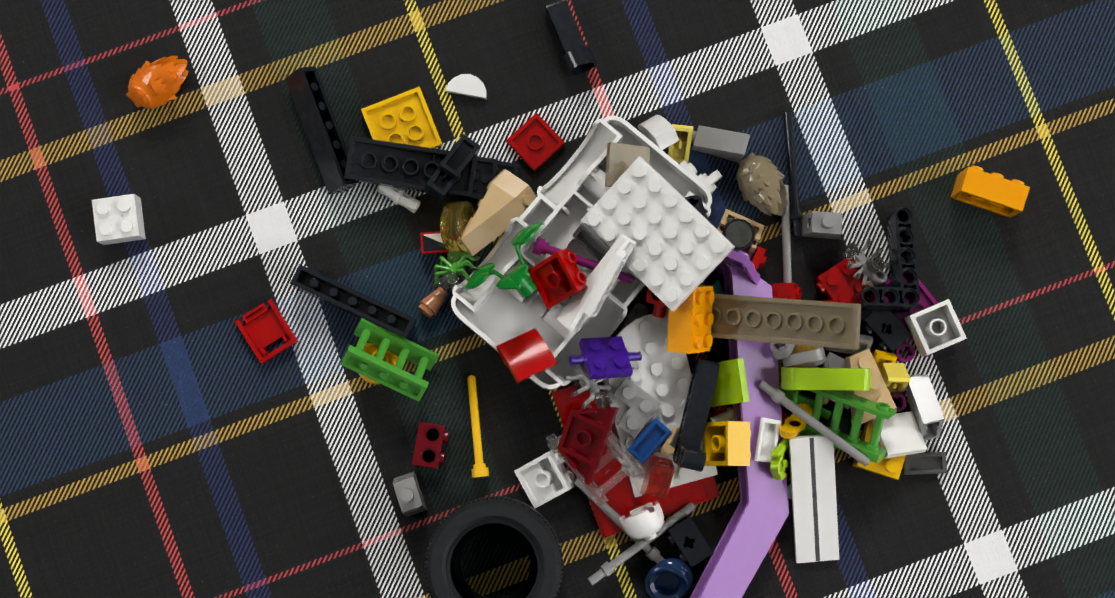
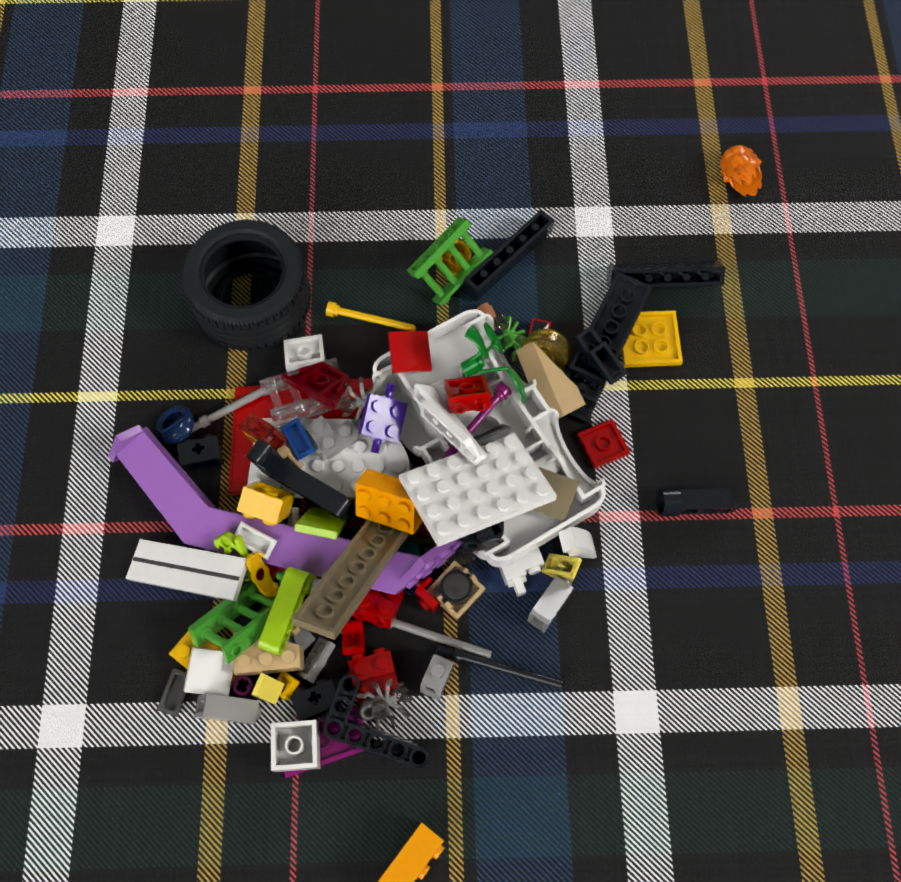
camera: 110 degrees right, 15 degrees down
(118, 219) = (635, 115): white brick -> none
(265, 328) = (512, 190): red container -> none
(399, 197) = (585, 320): white pin -> none
(409, 494) = (336, 249): light grey torso -> none
(424, 444) = (371, 274): dark red brick -> none
(468, 86) = (672, 403): white tile -> none
(608, 567) = (207, 376): light grey bar -> none
(644, 521) = (231, 413): white cylinder -> none
(762, 184) = (495, 628): dark tan head -> none
(779, 397) = (287, 562): light grey bar -> none
(910, 348) = (279, 714): magenta bush -> none

